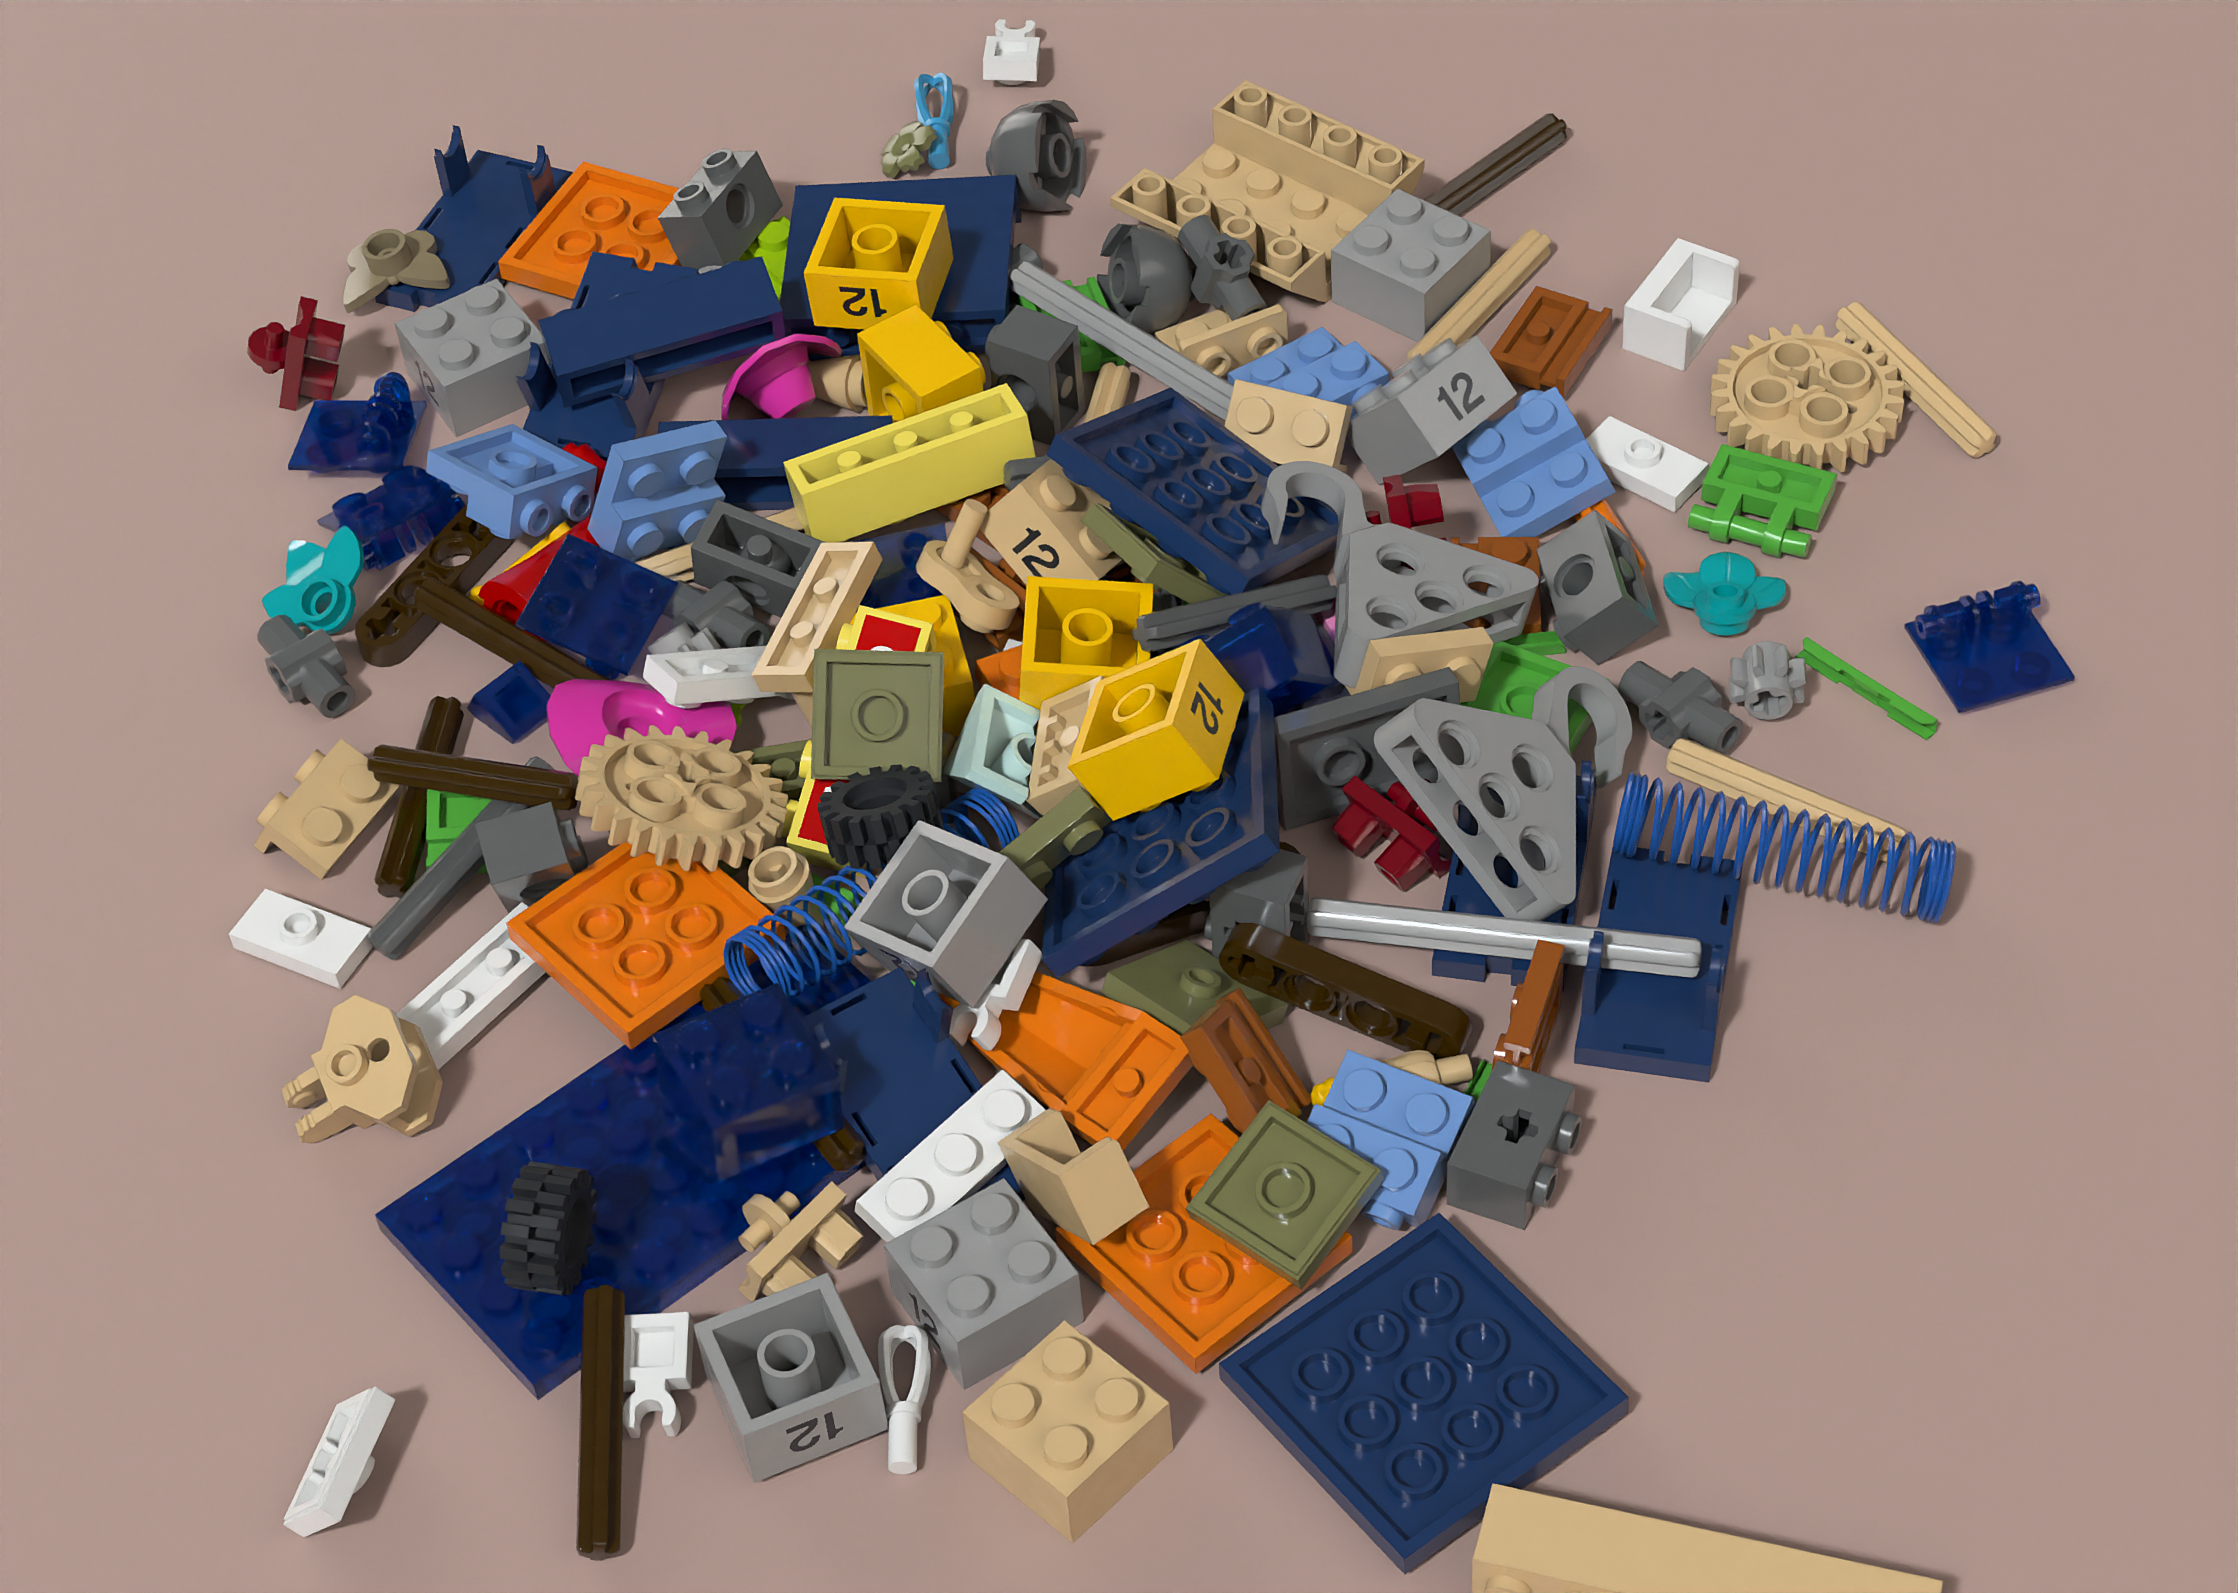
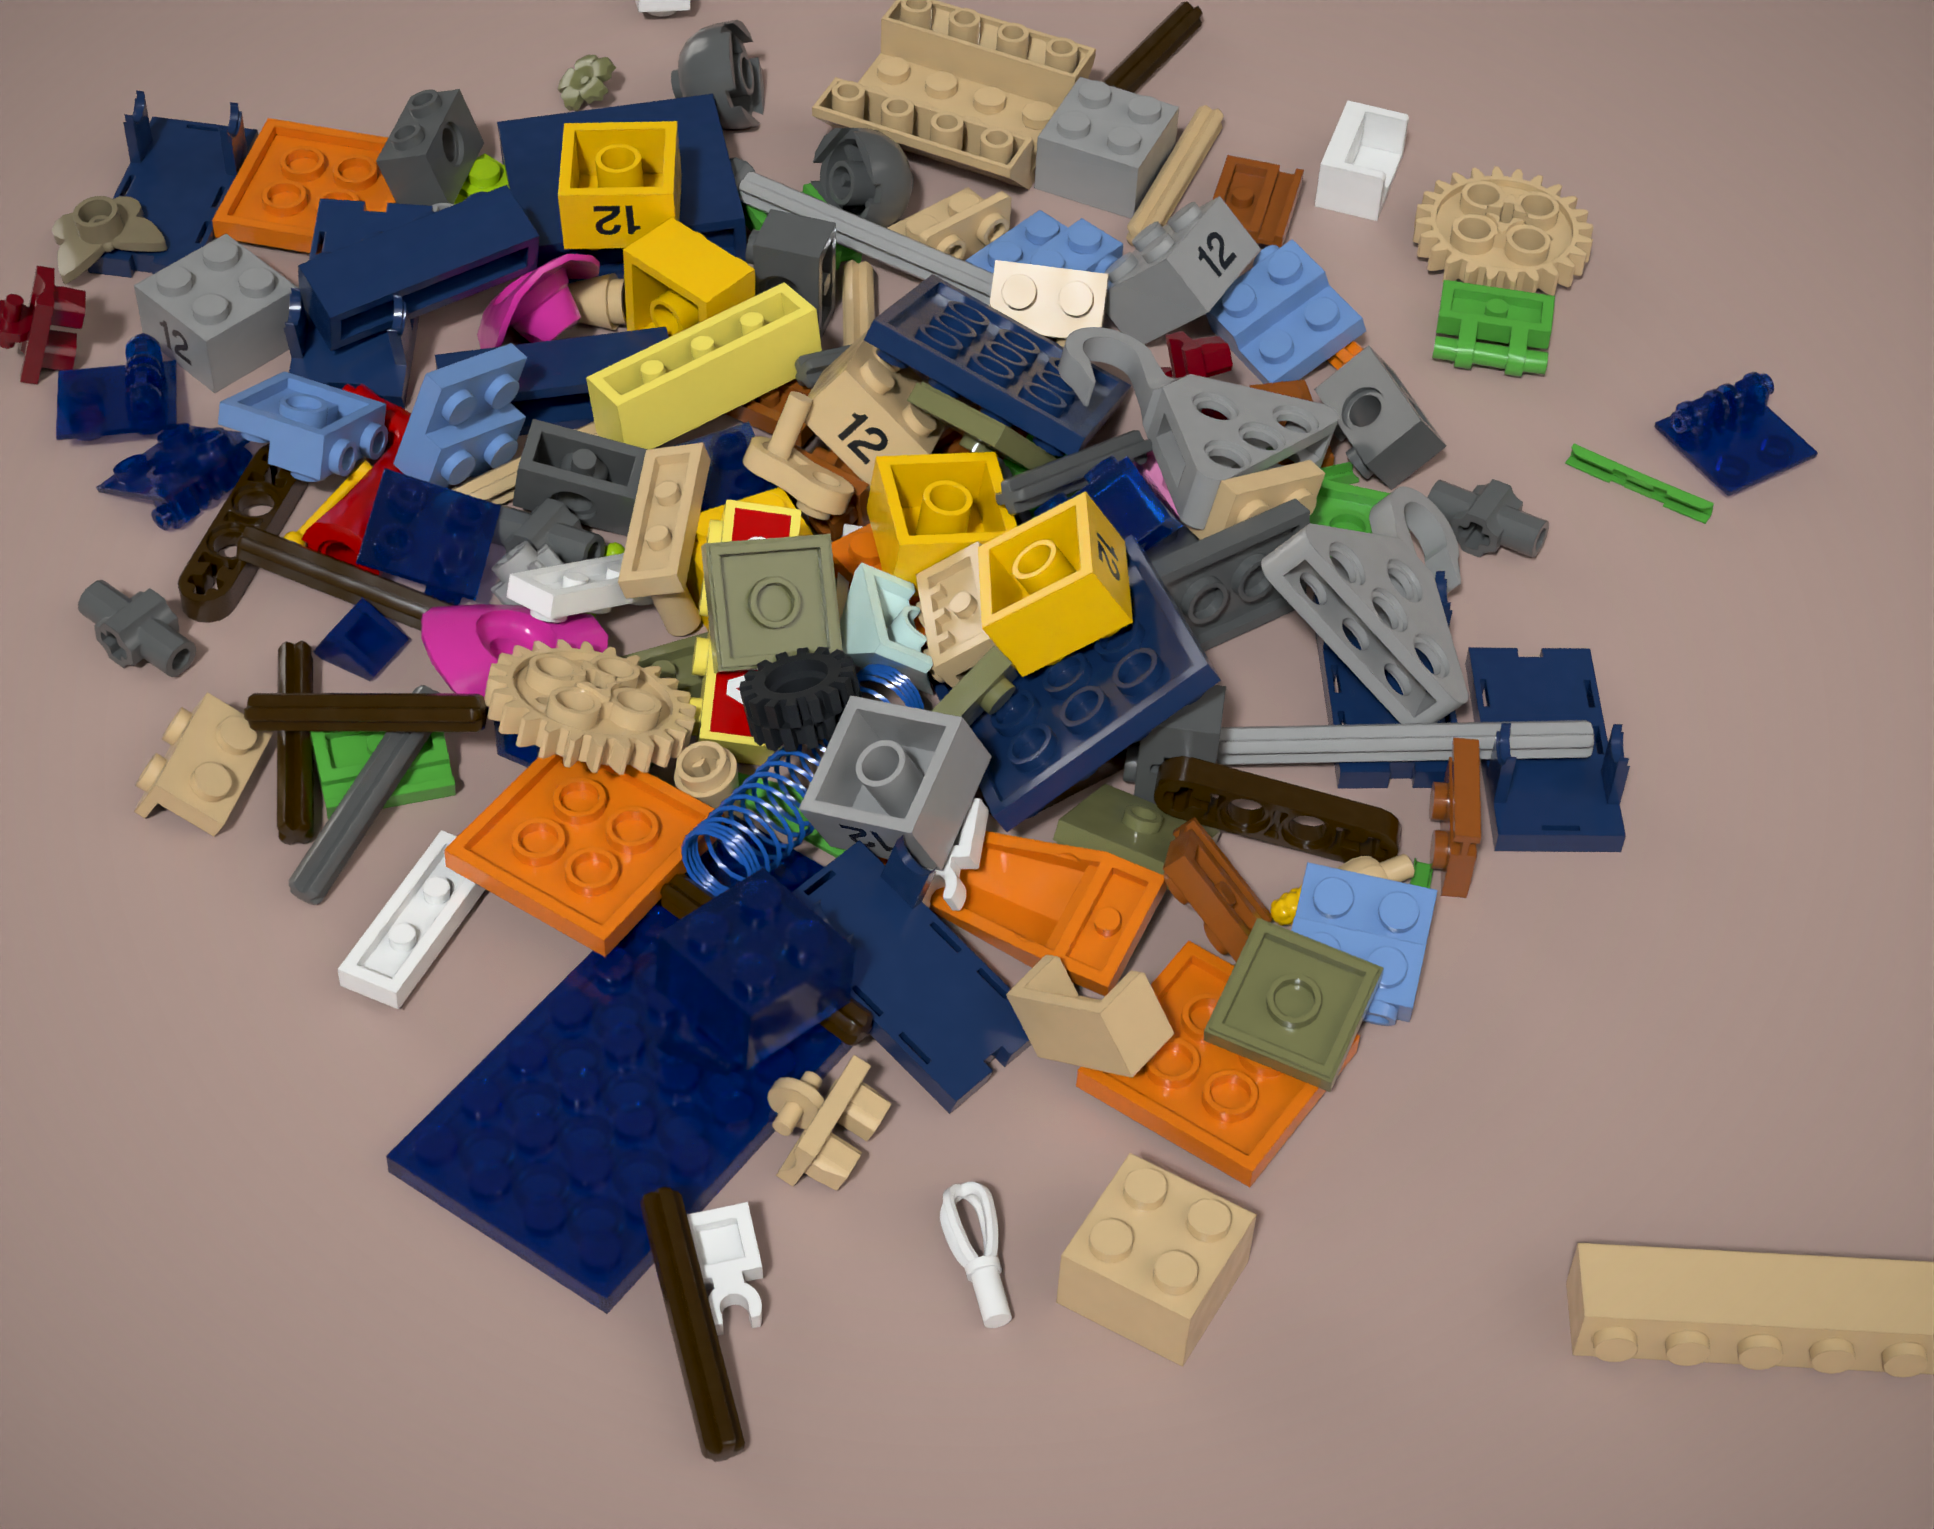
camera: 20 degrees left, 0 degrees up
(301, 938) = (216, 895): white plate -> none
(319, 583) = (121, 542): teal plate -> none
(339, 1462) = (431, 1407): white plate -> none
(370, 1072) = (344, 1014): tan hinge -> none
(530, 854) = (449, 782): dark grey brick -> none
(548, 1228) = (594, 1139): black tyre -> none
(791, 1377) = (872, 1249): light grey brick -> none
(939, 150) = (616, 84): dark azure piece -> none
(950, 1161) = (959, 1023): white plate -> none
(983, 1282) = (1027, 1130): light grey brick -> none
(1221, 268) = (941, 162): dark grey axle -> none
(1412, 846) = (1272, 649): dark red hips -> none
(1422, 1390) = (1468, 1170): dark blue plate -> none
(1512, 1145) = (1476, 932): dark grey brick -> none
(1634, 811) = (1505, 621): blue piece -> none
(1646, 464) = (1384, 307): white plate -> none
(1724, 592) = (1486, 412): teal plate -> none
(1737, 778) = (1606, 590): tan axle -> none
(1767, 680) = (1558, 484): light grey gear -> none
(1920, 382) = (1606, 218): tan axle -> none

